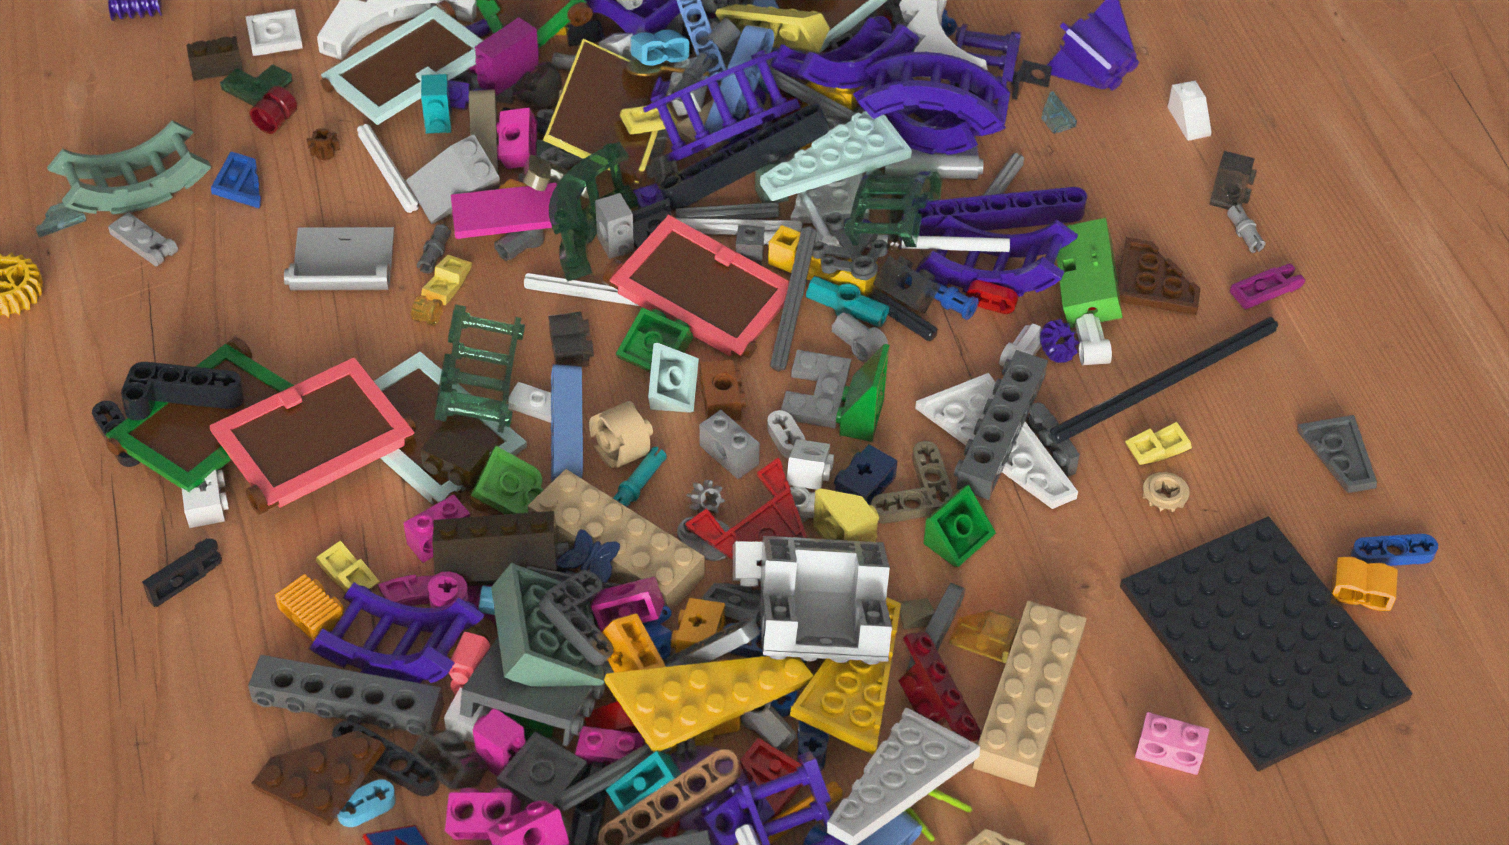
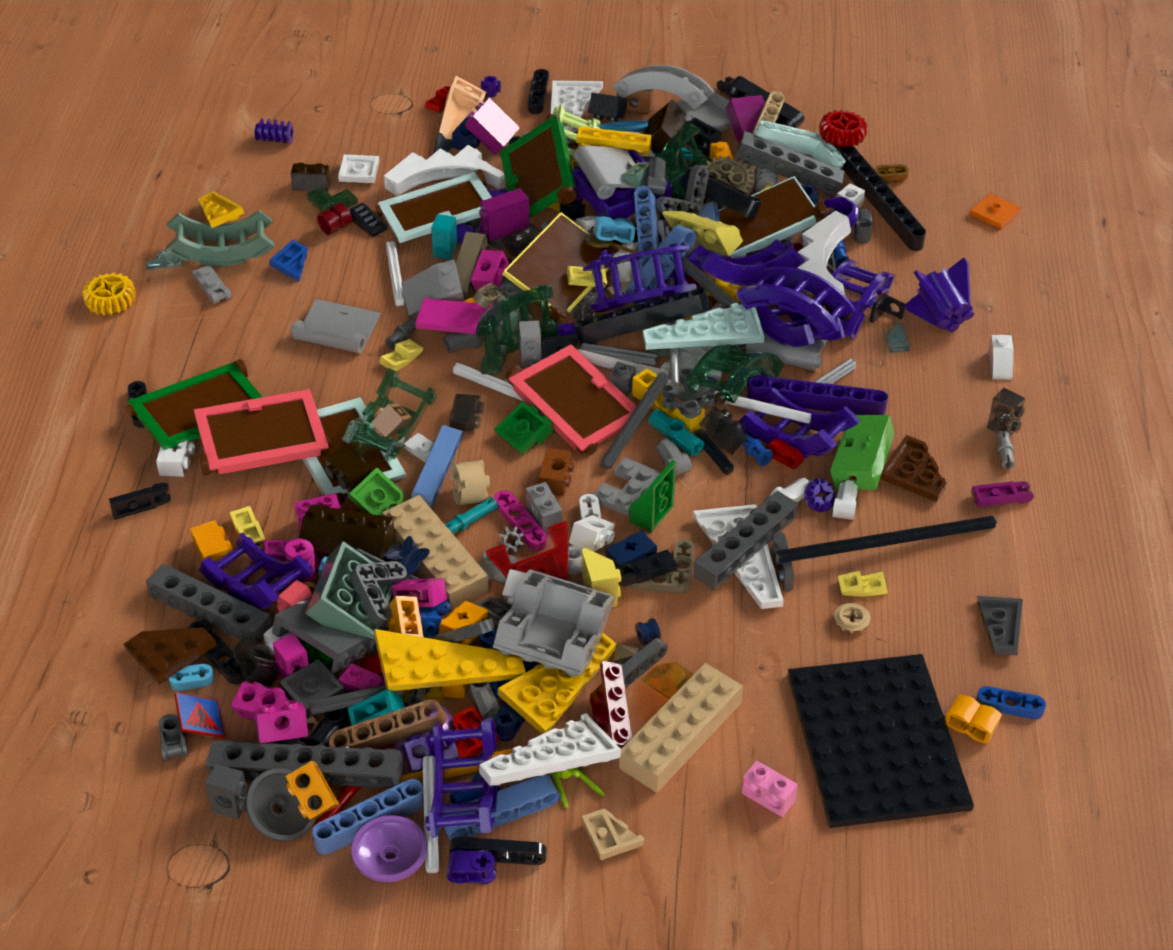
camera: 20 degrees right, 5 degrees down
(110, 130) = (219, 209): none -> yellow wing
(179, 385) = (186, 379): black beam -> none
(306, 90) = (366, 219): none -> black slope
(323, 144) = (357, 248): reddish brown gear -> none
(427, 310) = (376, 371): clear yellow wheel -> none
(486, 376) = (390, 420): none -> medium nougat brick
(672, 380) = (522, 454): light aqua slope -> none
(694, 73) = (632, 248): dark grey pin -> none
(704, 467) = (522, 519): none -> dark pink beam
(725, 36) = (659, 229): dark grey piece -> none
(898, 490) = (647, 568): none -> black hinge
(931, 576) = (647, 631): none -> dark blue wheel
(958, 528) = (682, 602): green slope -> none

